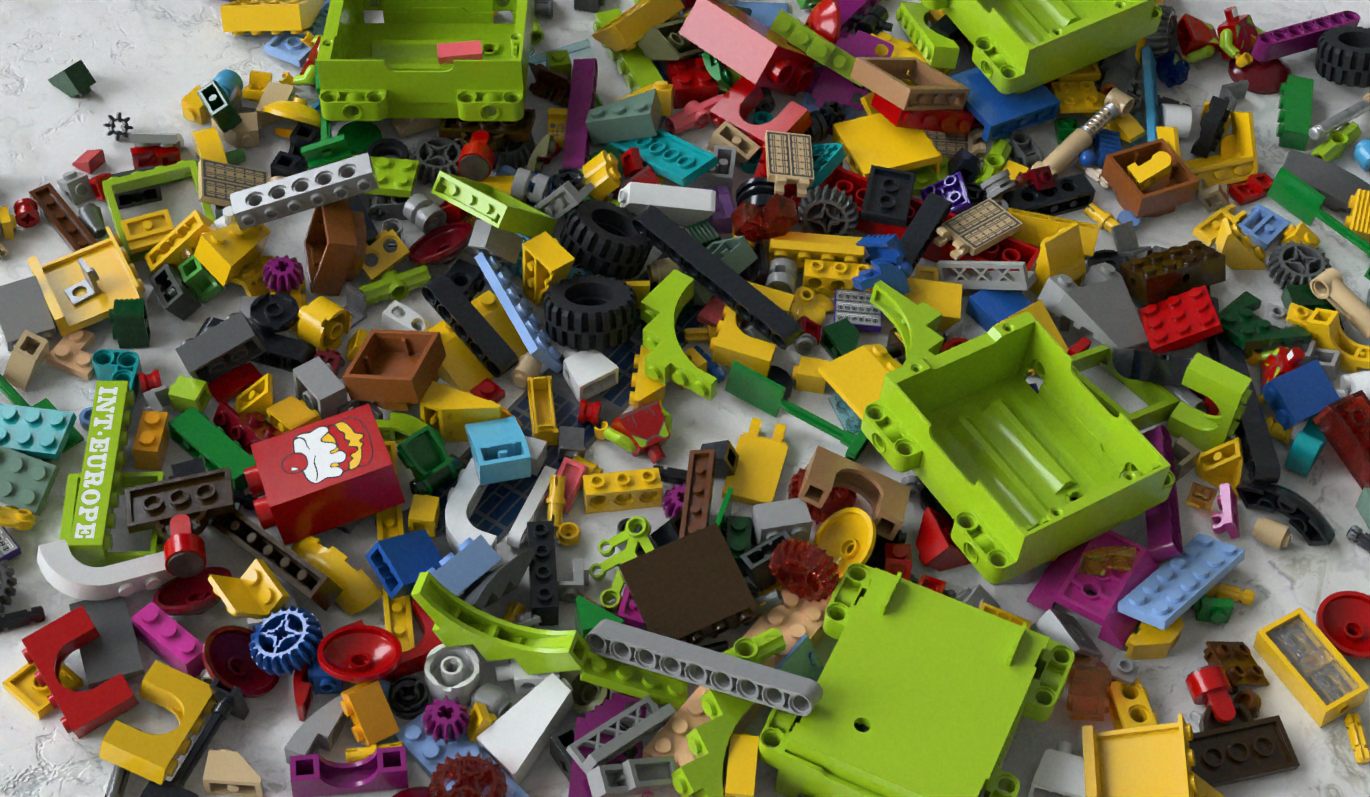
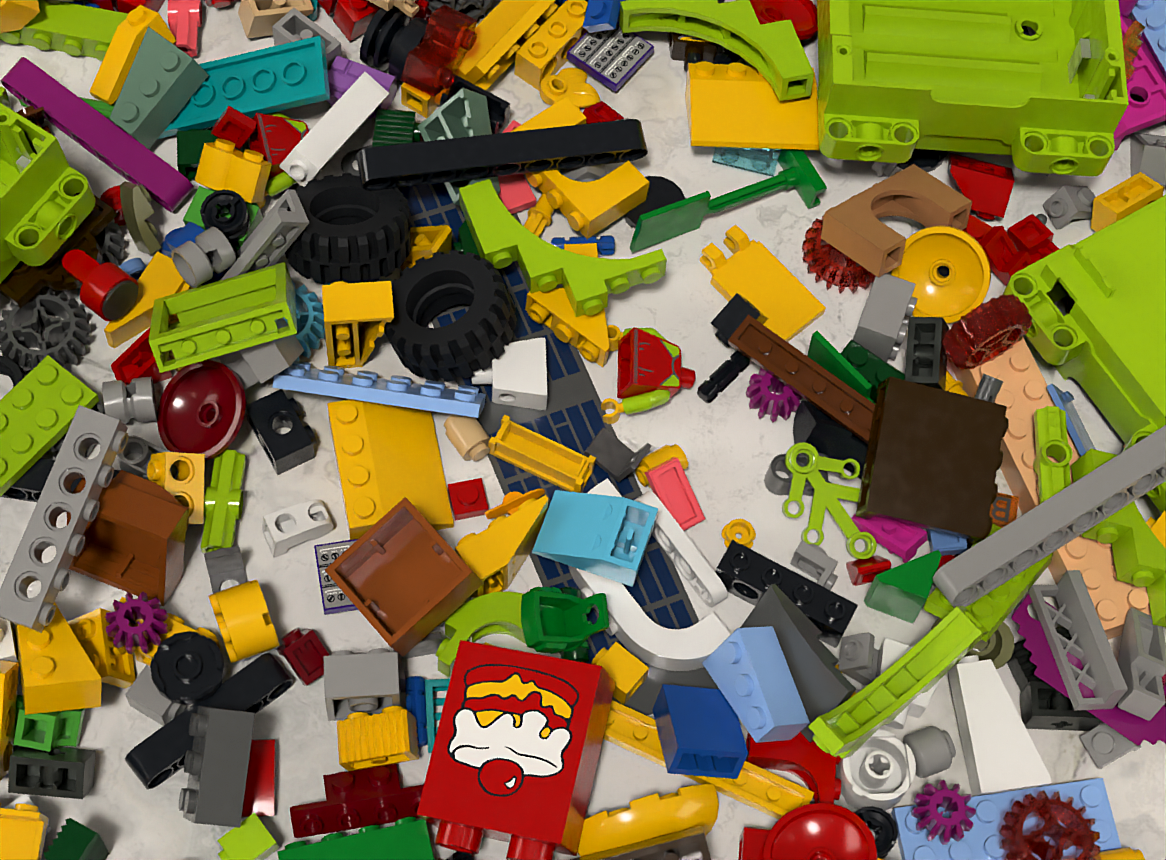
camera: 60 degrees left, 15 degrees up
(257, 396) = (300, 762): yellow slope -> none
(355, 343) = (296, 600): yellow tile -> none
(469, 325) = (382, 456): black beam -> none
(479, 721) = (959, 773): yellow tile -> none
(556, 500) = (694, 520): yellow pin -> none
(557, 124) = (98, 173): yellow leg -> none
(589, 412) = (580, 407): red wheel -> none
(622, 490) = (718, 442): yellow brick -> none
(660, 269) = (419, 202): tan brick -> none
(782, 275) = (524, 97): light grey wheel -> none
(807, 376) = (673, 154): yellow brick -> none
(839, 338) = (652, 98): dark green slope -> none

